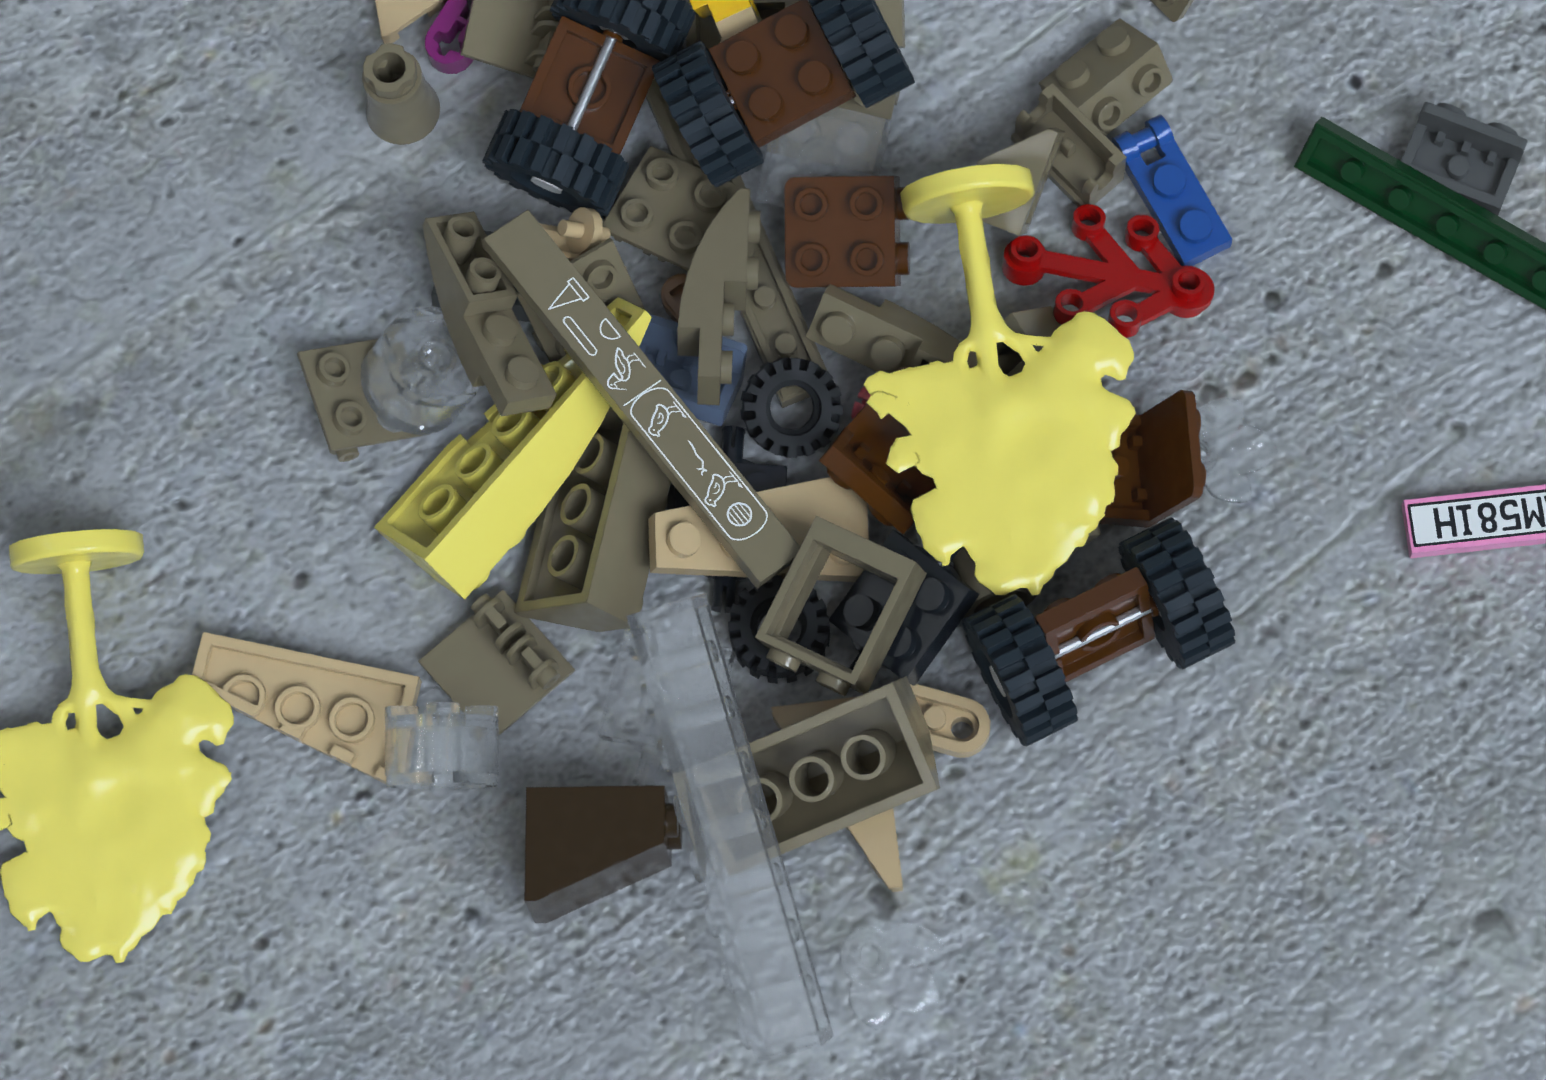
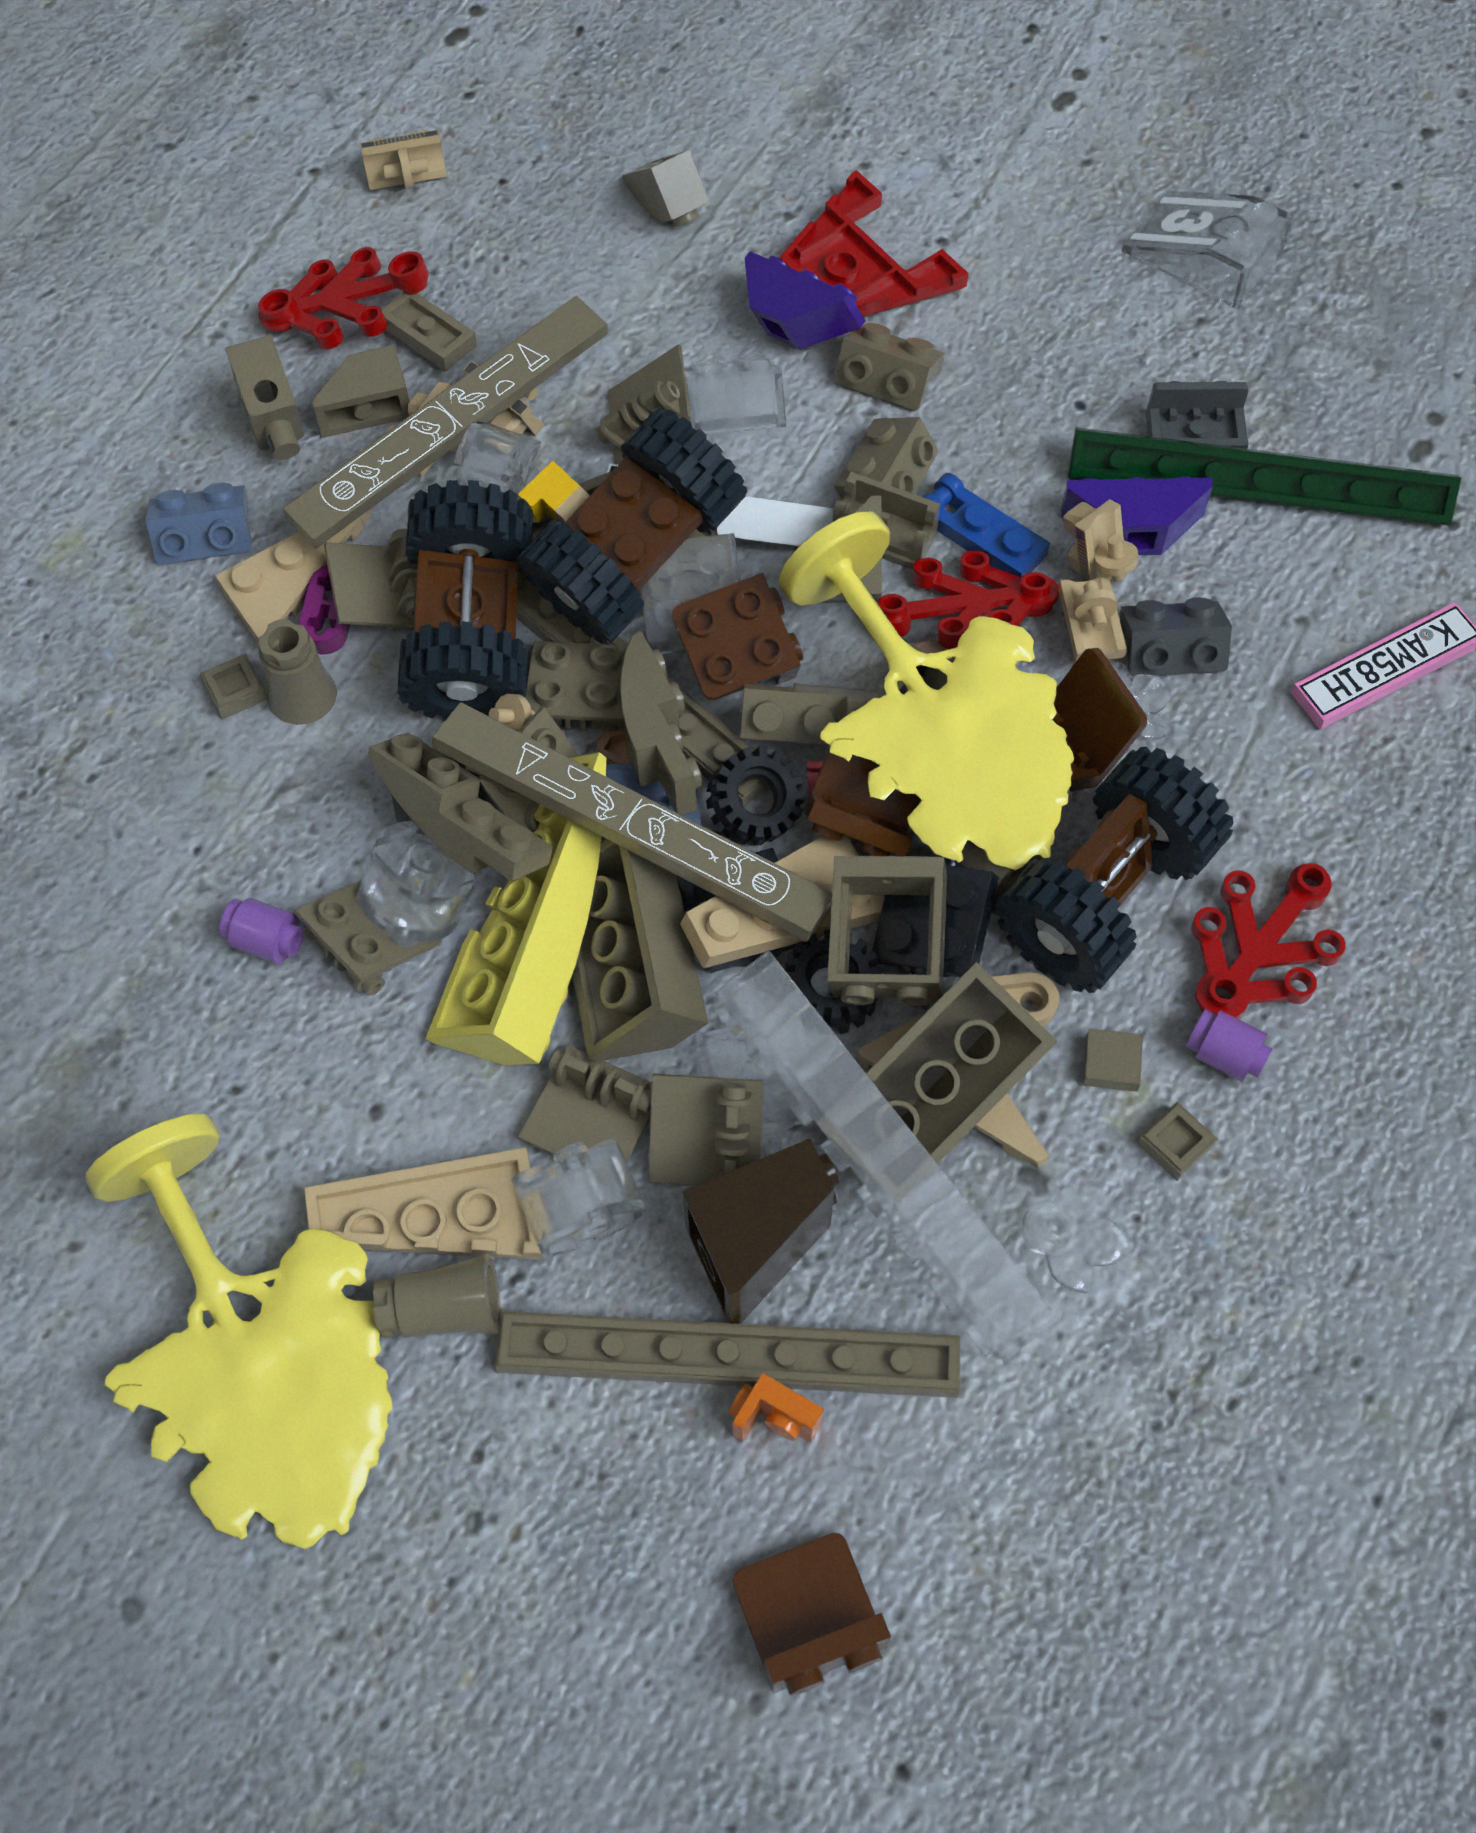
camera: 30 degrees left, 10 degrees down
(263, 355) = (261, 929): none -> medium lavender brick
(283, 790) = (440, 1300): none -> dark tan plant
(337, 75) = (234, 686): none -> dark tan tile
(523, 947) = (728, 1354): none -> dark tan tile
(545, 1022) = (785, 1410): none -> orange bracket
(588, 728) = (703, 1127): none -> dark tan hinge
(957, 104) = (775, 521): none -> white sticker
(1014, 817) = (1113, 1060): none -> dark tan tile
(1035, 922) = (1177, 1141): none -> dark tan tile
(1129, 851) = (1229, 1045): none -> medium lavender brick
(1218, 766) = (1260, 947): none -> red plant
(1225, 347) = (1092, 617): none -> tan hips
(1271, 268) = (1099, 542): none -> tan hips
(1308, 397) = (1176, 637): none -> dark grey bracket
(1341, 240) = (1151, 509): none -> dark purple slope

